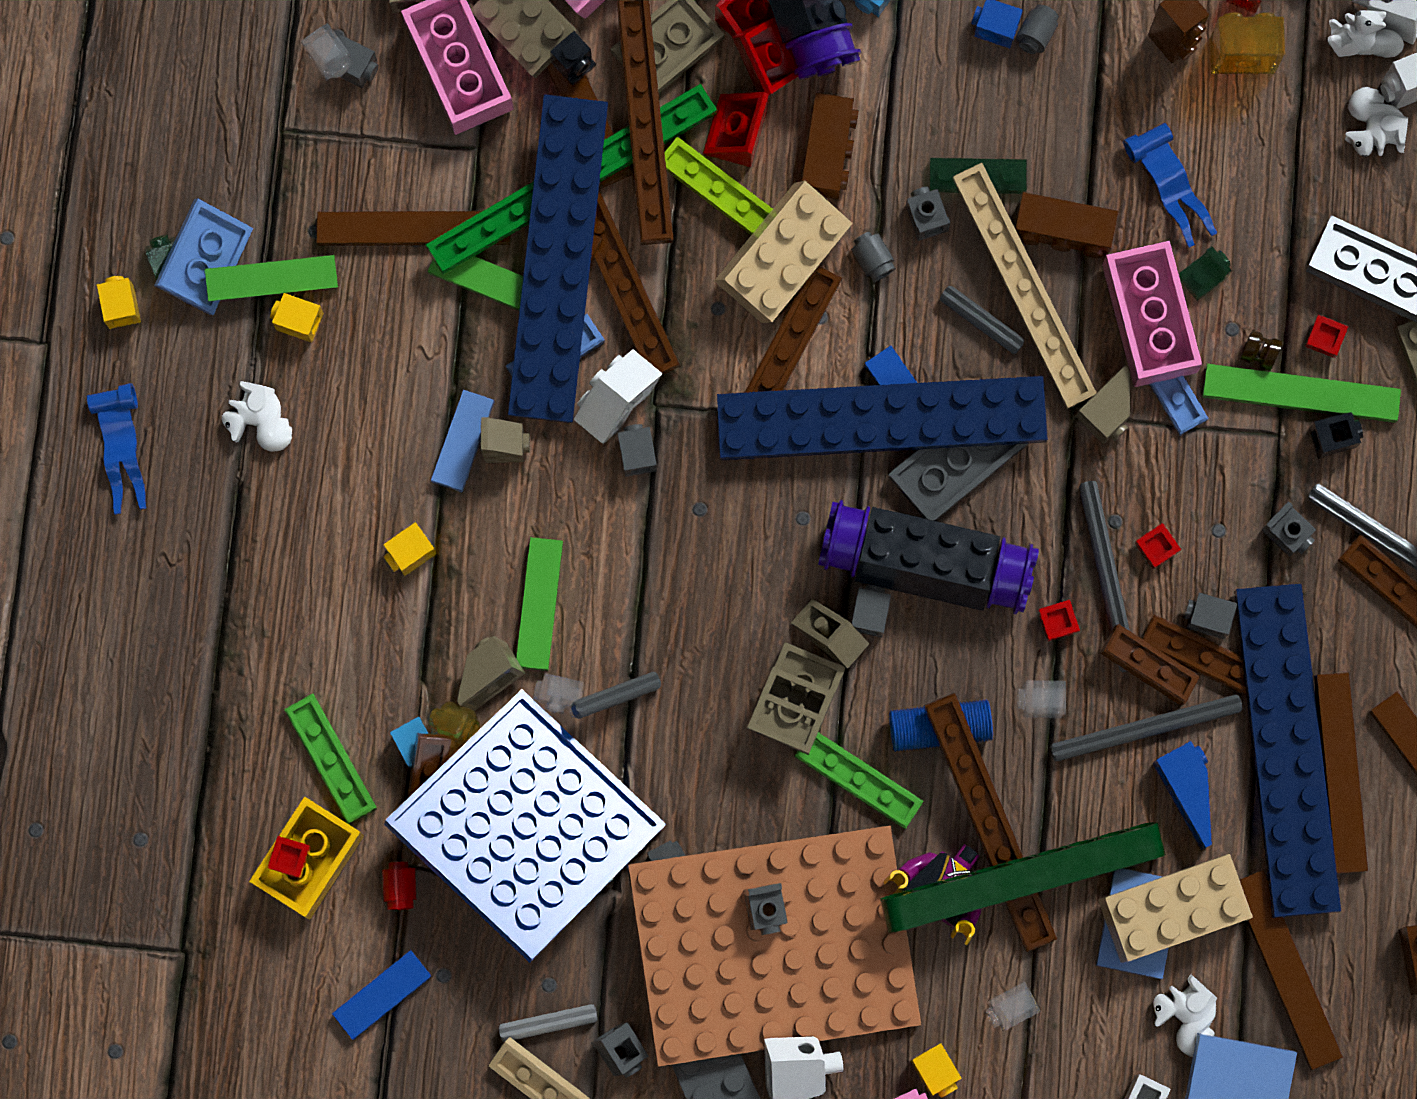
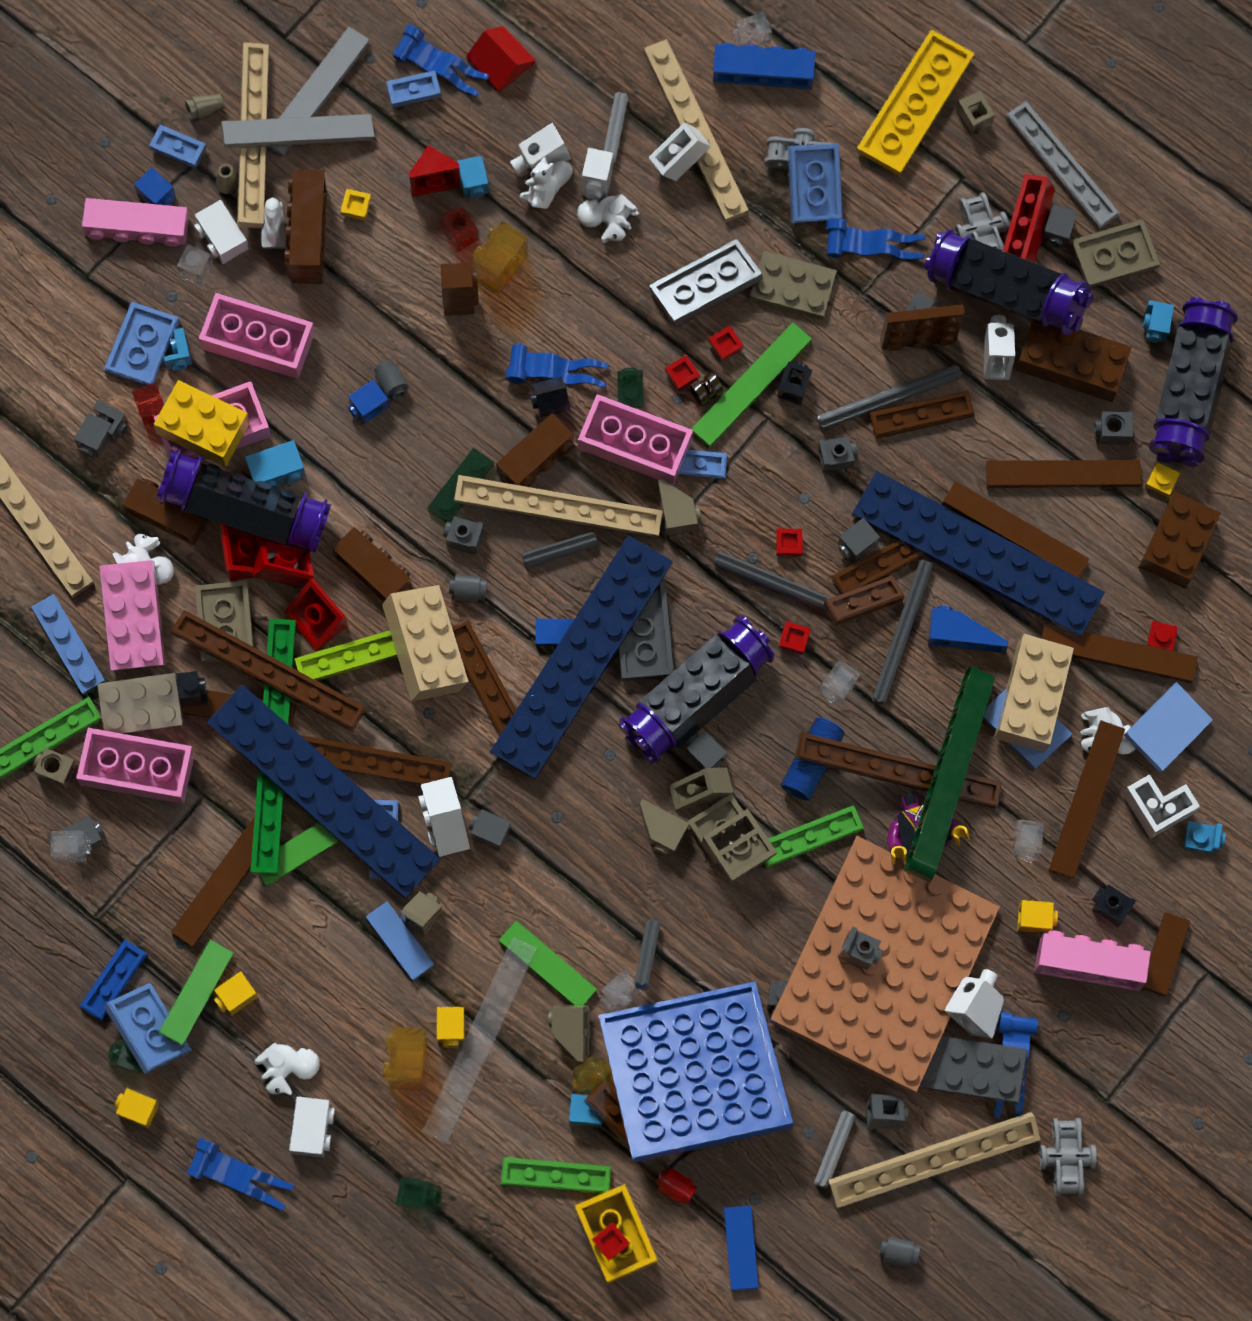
camera: 60 degrees left, 5 degrees down
(214, 483) = (310, 1127): none -> white brick
(218, 636) = (419, 1195): none -> clear green bracket
(234, 191) = (113, 979): none -> blue tile
(342, 527) = (407, 1058): none -> clear yellow brick
(415, 588) = (479, 1040): none -> clear tile
(759, 623) = (662, 828): none -> dark tan slope
(1100, 1040) = (1087, 799): none -> reddish brown tile
(1135, 198) = (550, 397): none -> black brick
(1261, 313) = (682, 373): none -> red plate
(1338, 1004) = (1162, 635): none -> red plate

